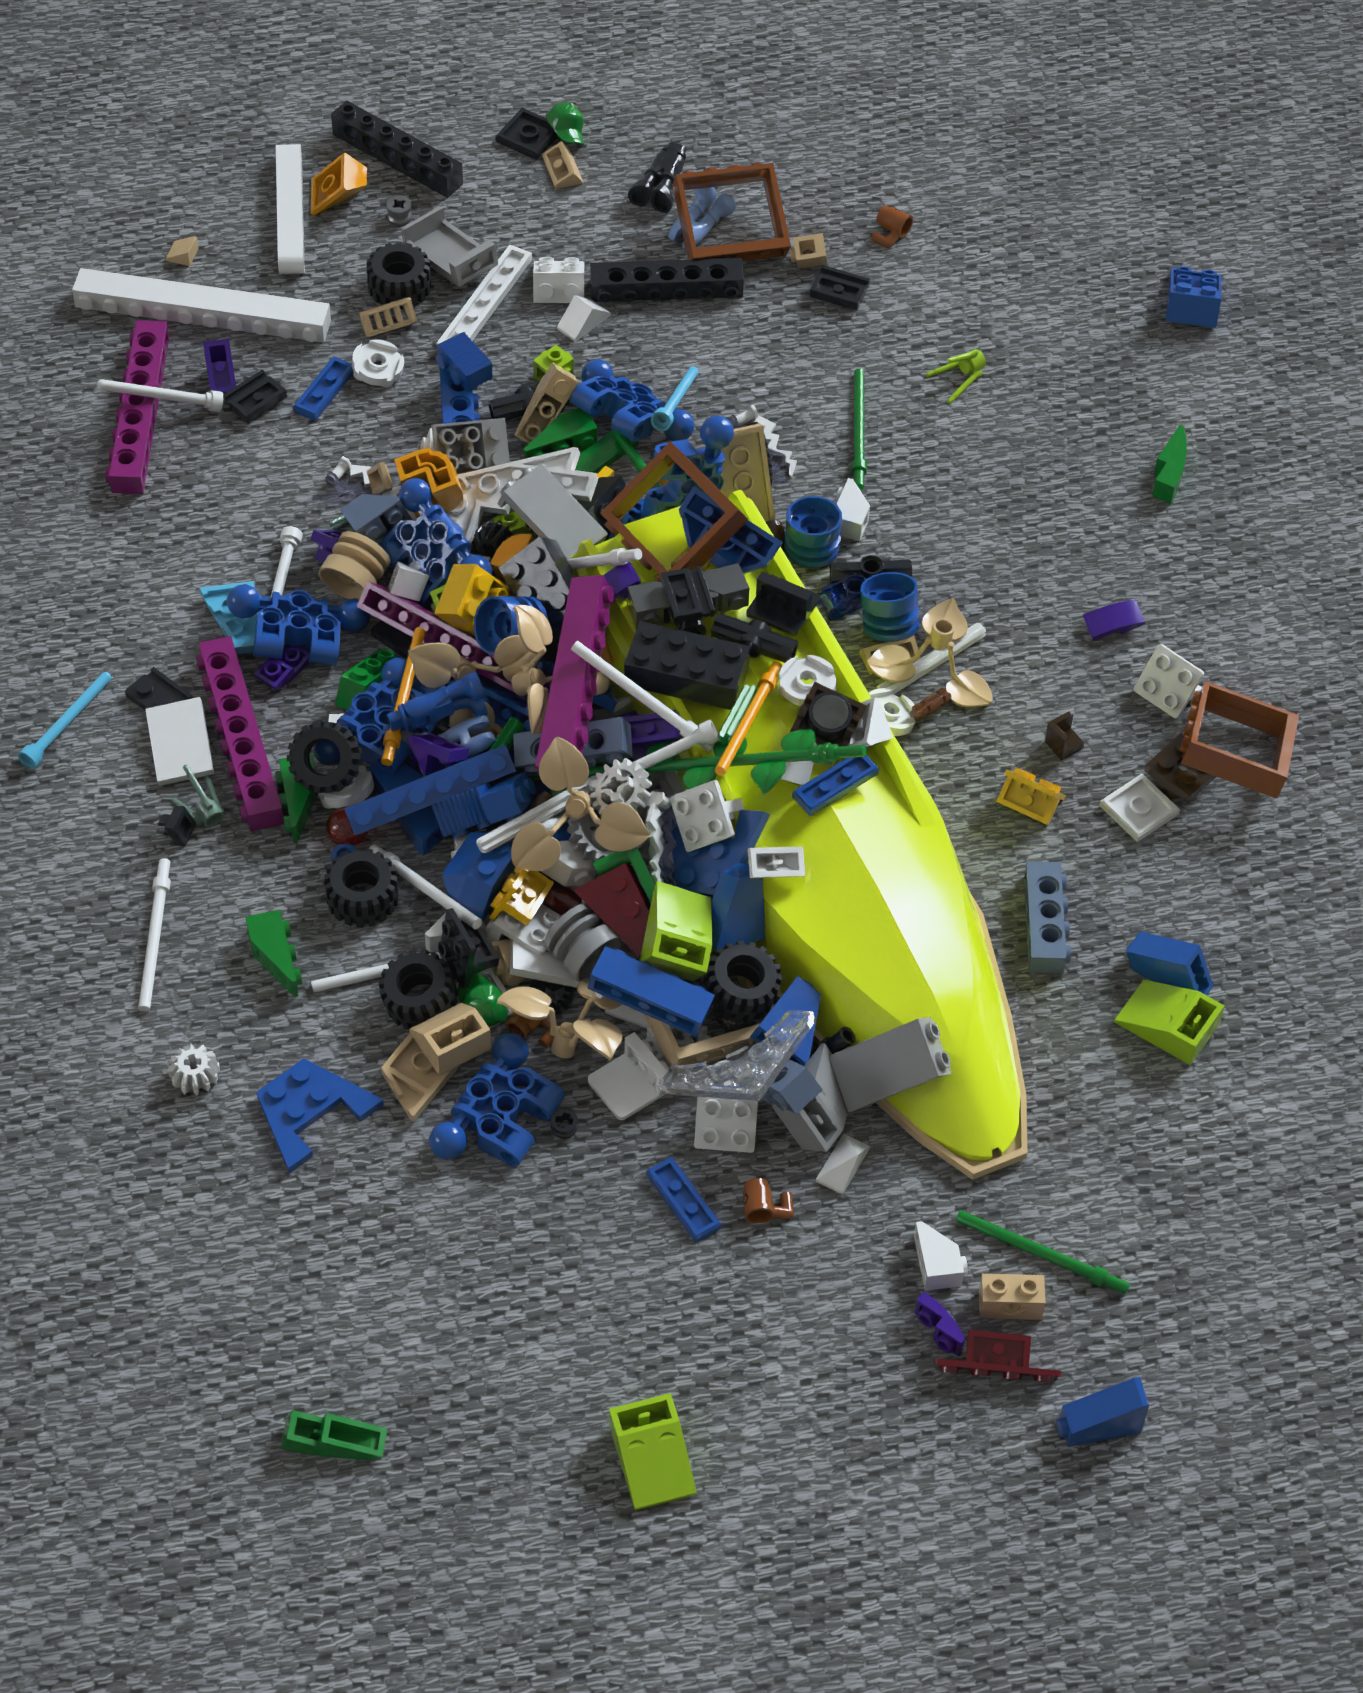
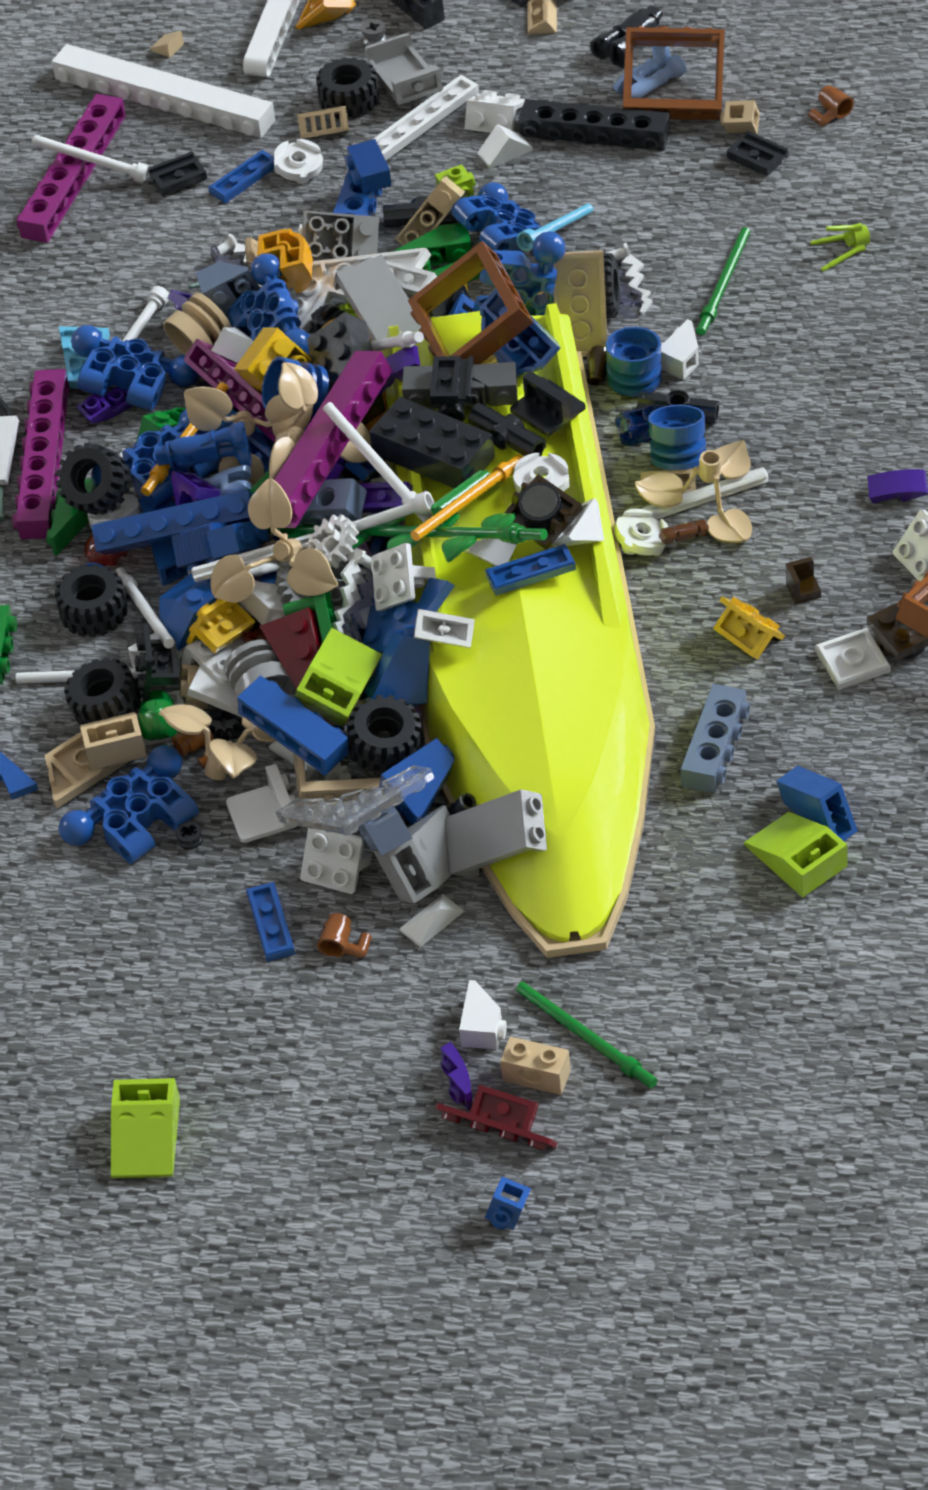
camera: 25 degrees right, 5 degrees down
(219, 365) = (154, 141): dark purple slope -> none
(1043, 1456) = (503, 1211): none -> blue brick
(1104, 1414) = (577, 1187): blue slope -> none

